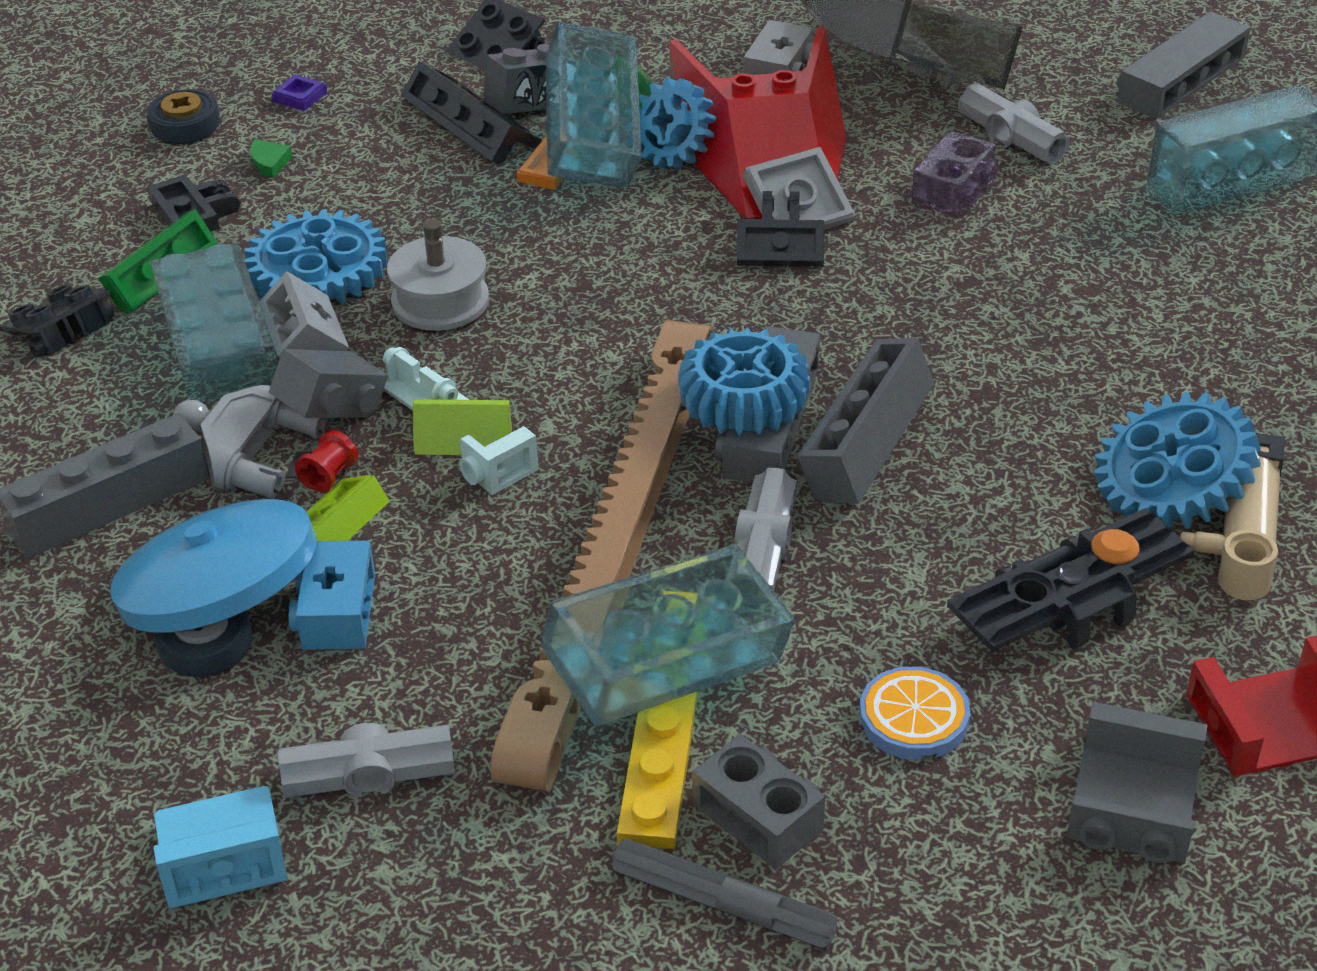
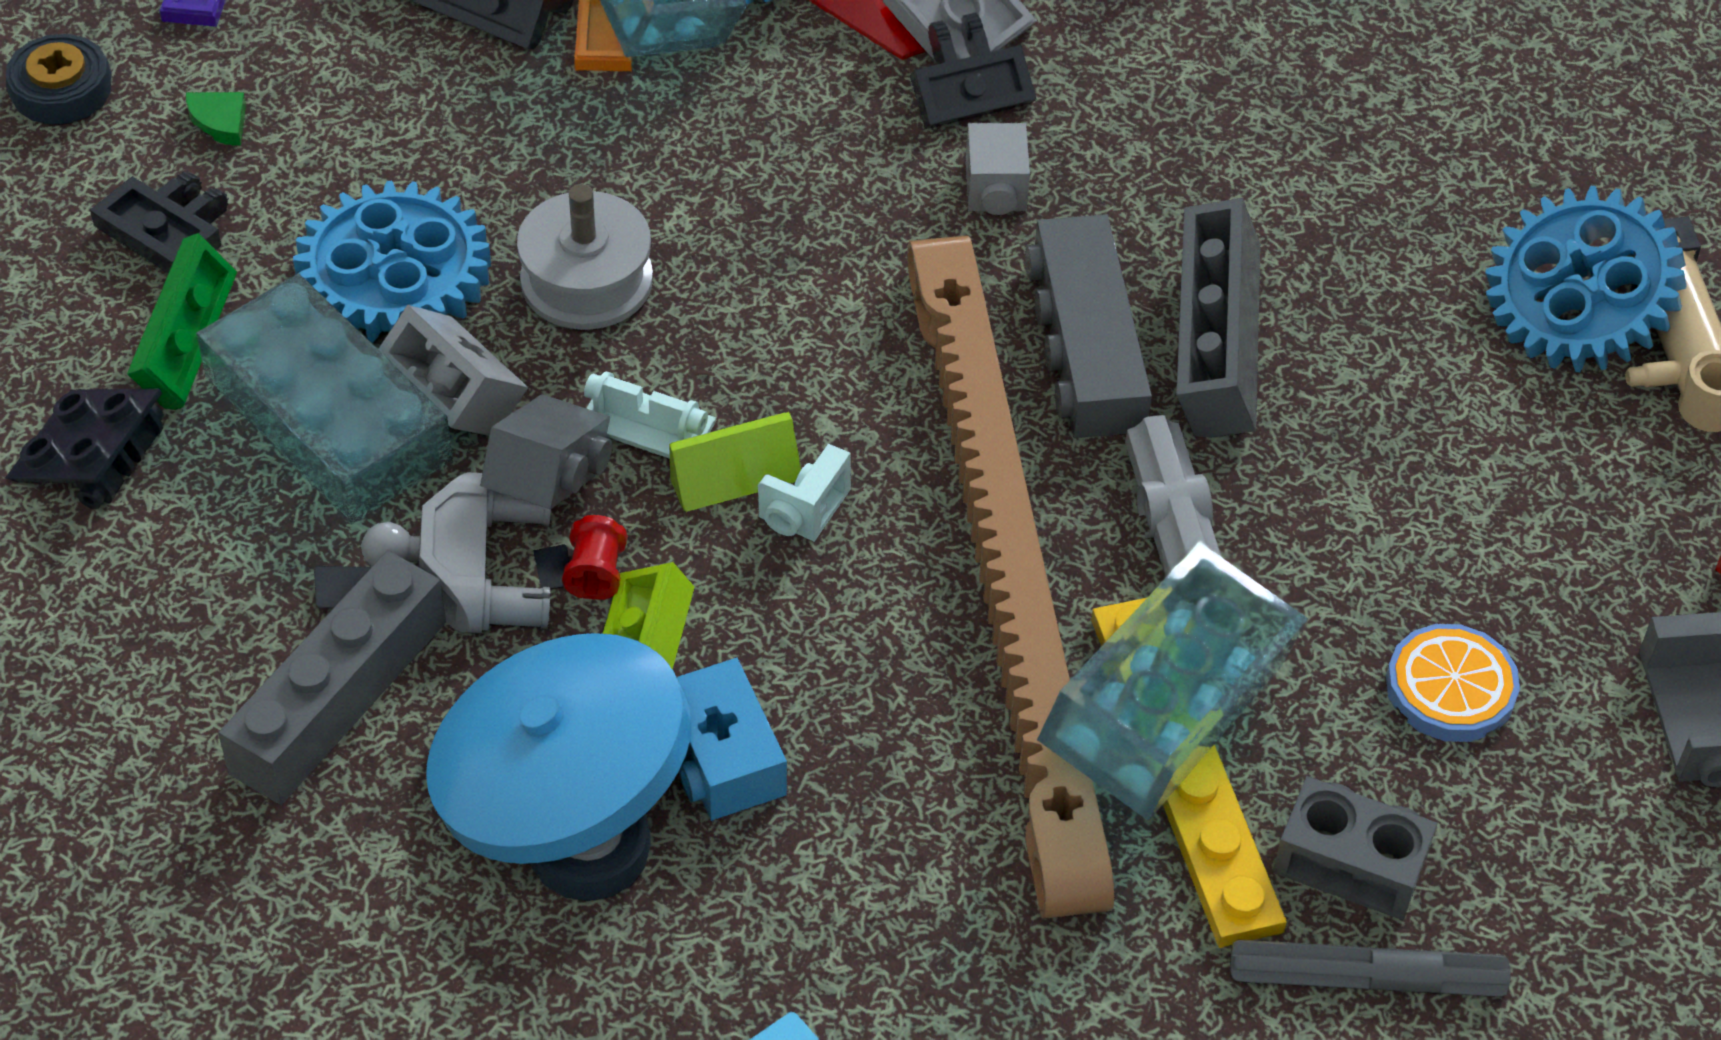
camera: 25 degrees left, 10 degrees up
(366, 760) = (890, 941): light grey piece -> none
(743, 381) = (1071, 312): dark azure gear -> none
(765, 293) = (997, 167): none -> light grey brick
(1071, 582) = (1571, 468): black piece -> none

